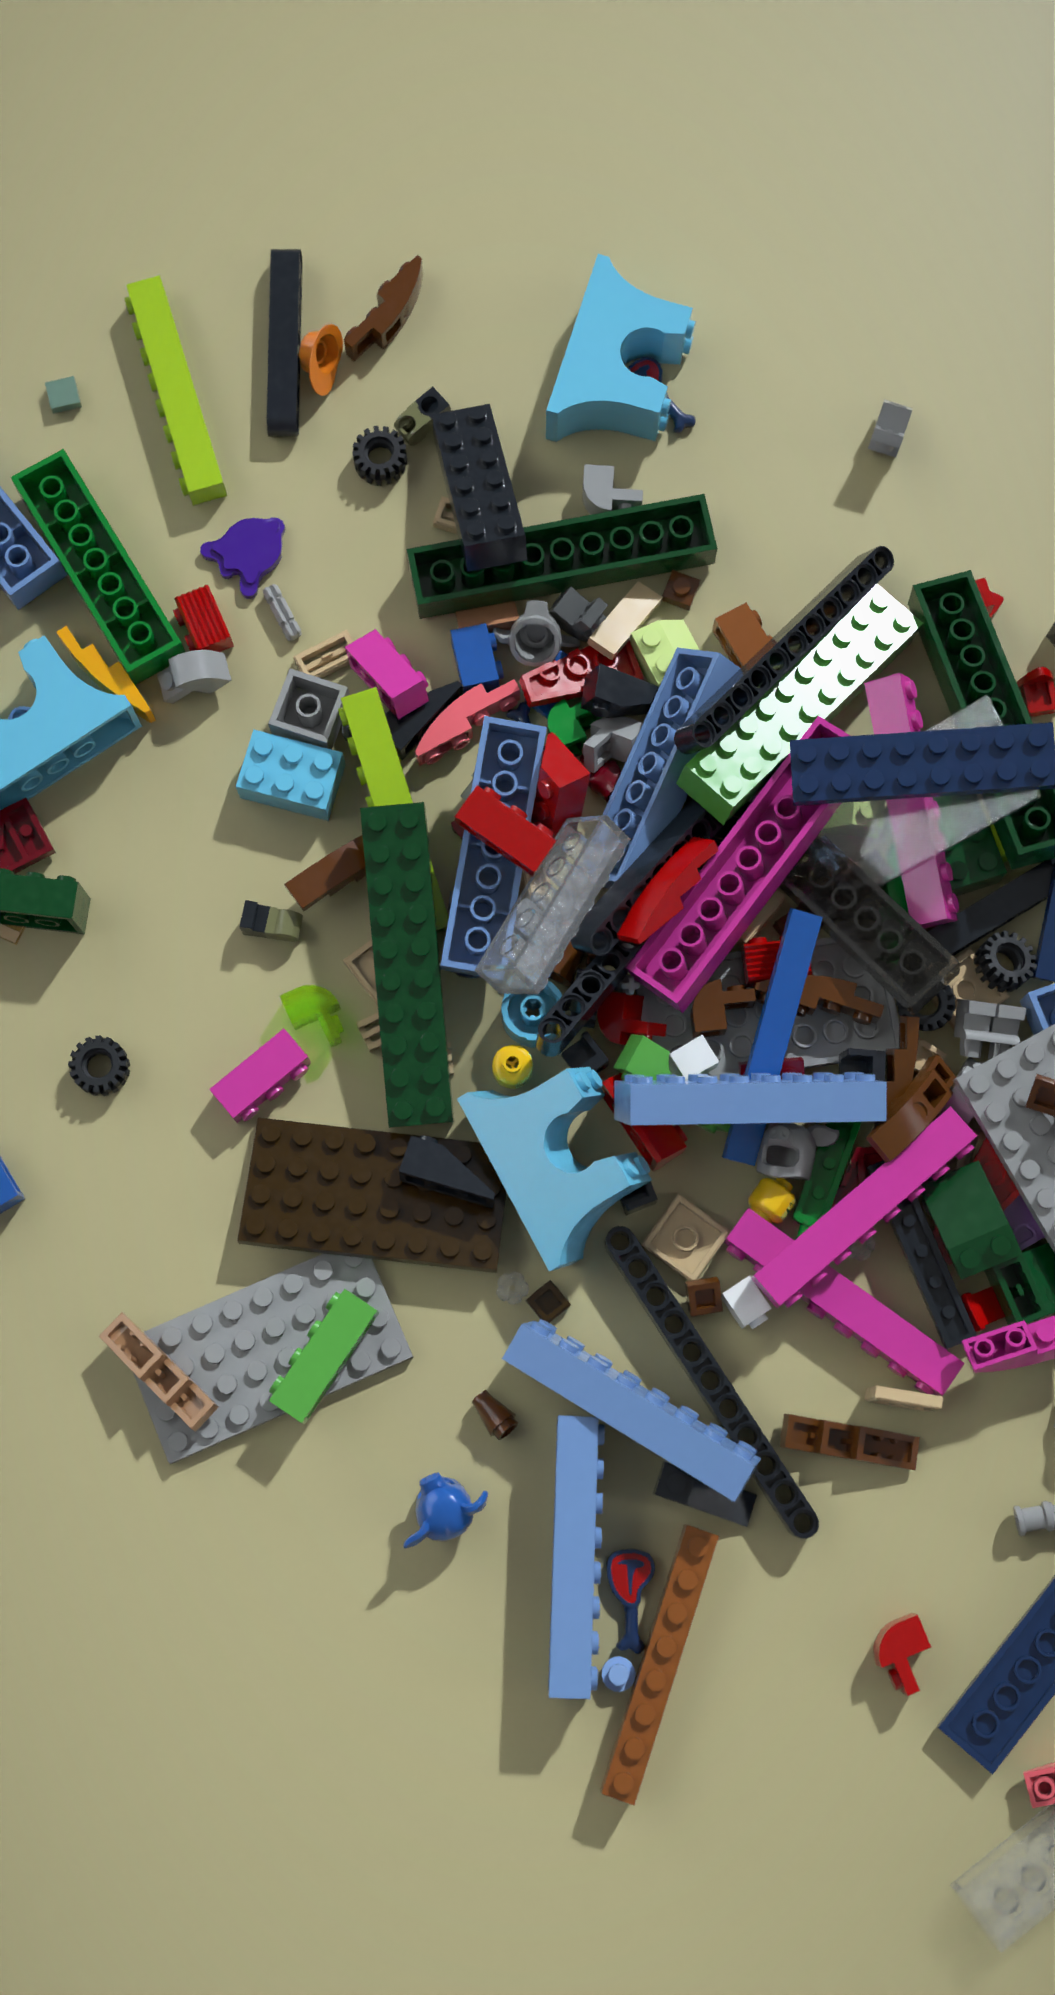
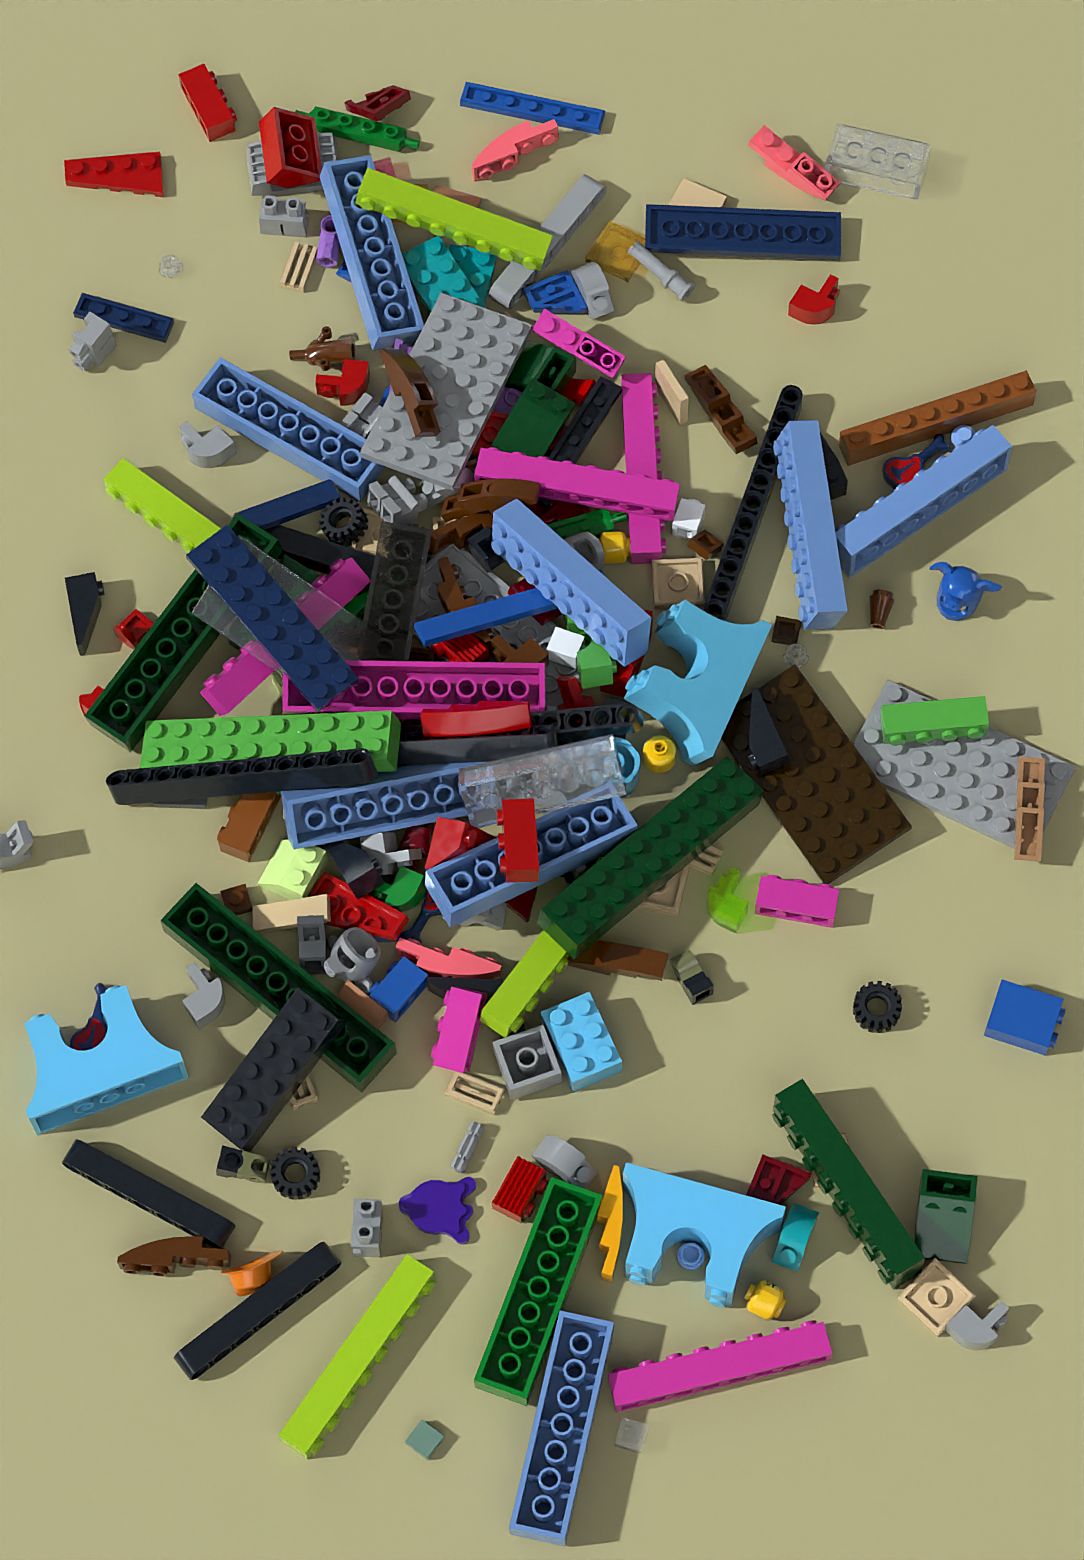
camera: 125 degrees left, 10 degrees down
(278, 474) = (367, 1228): none -> light grey hips
(461, 327) = (148, 1194): none -> black beam

